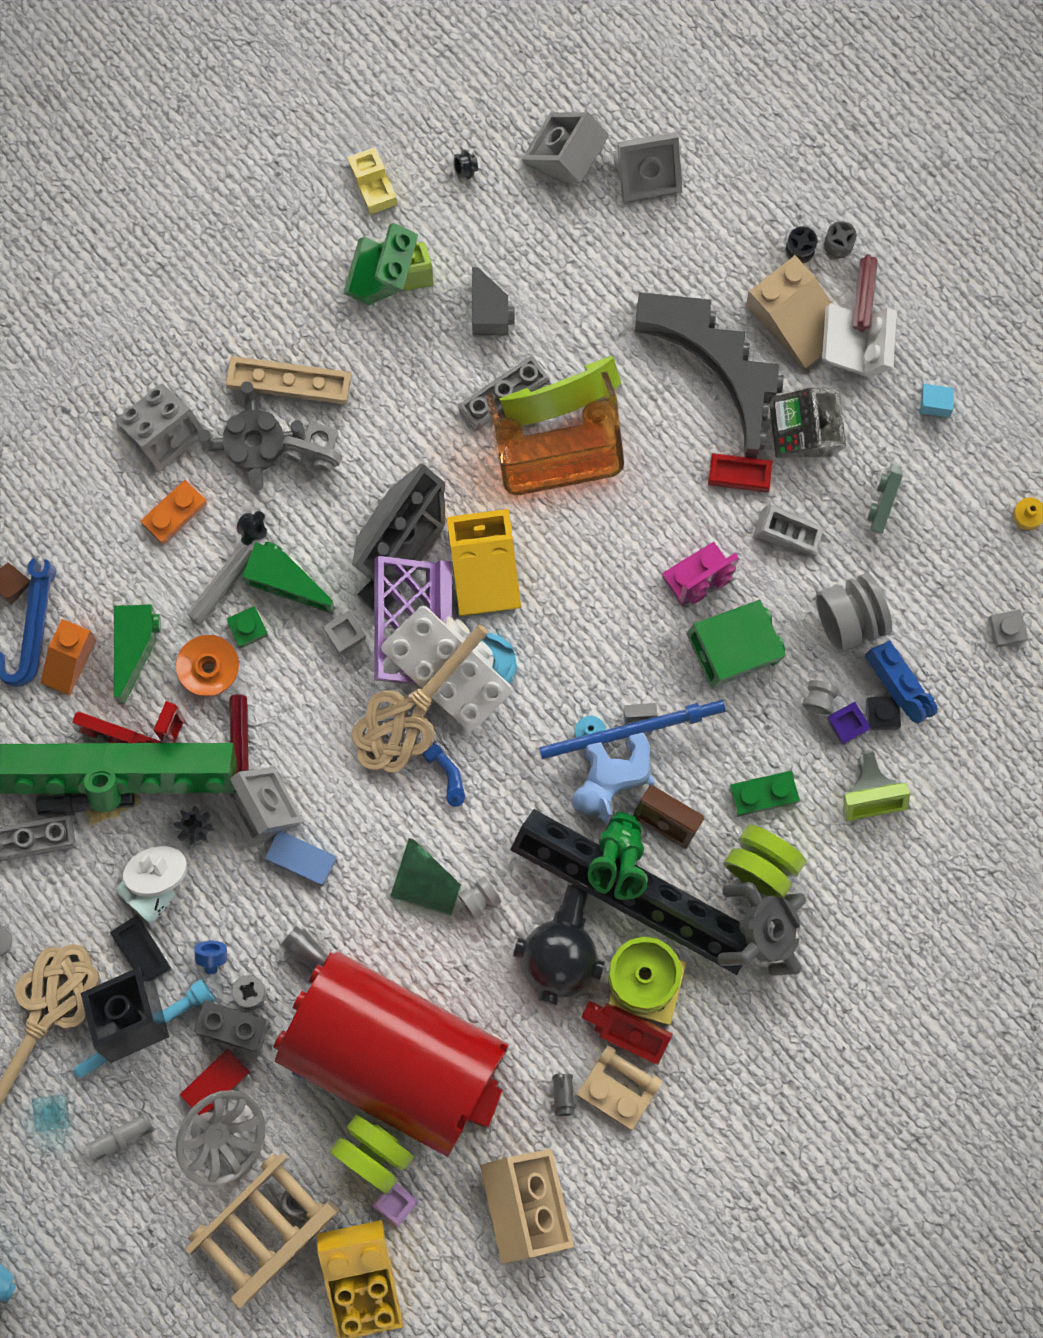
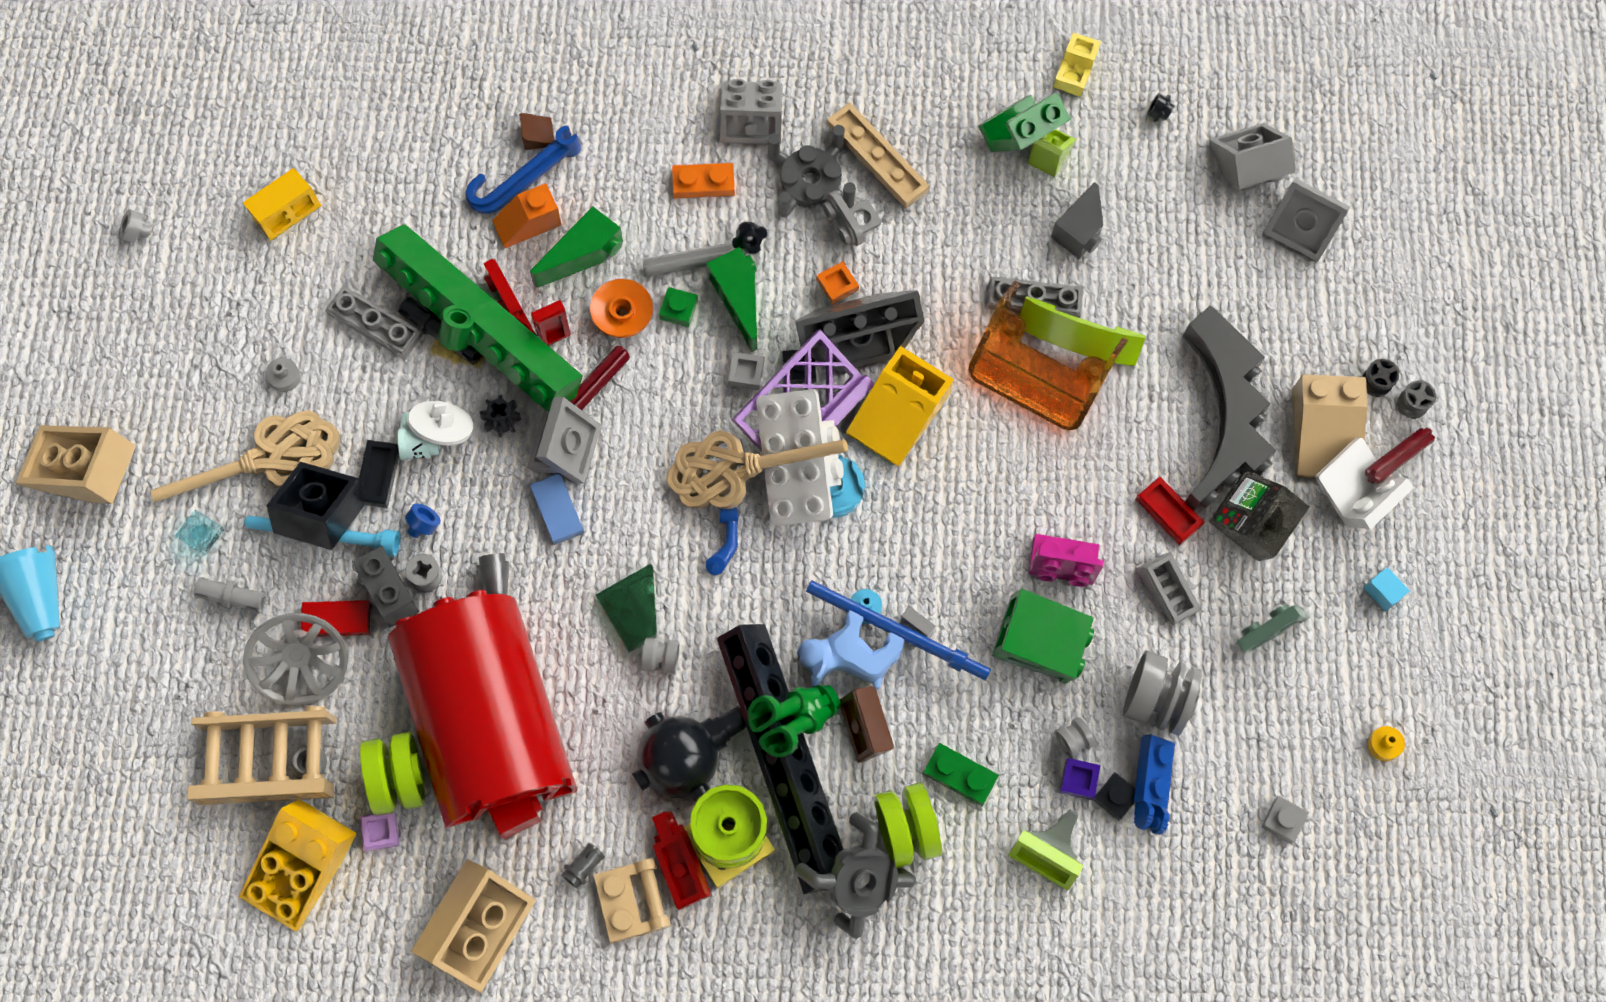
camera: 40 degrees right, 5 degrees down
(350, 506) = (837, 282): none -> orange plate

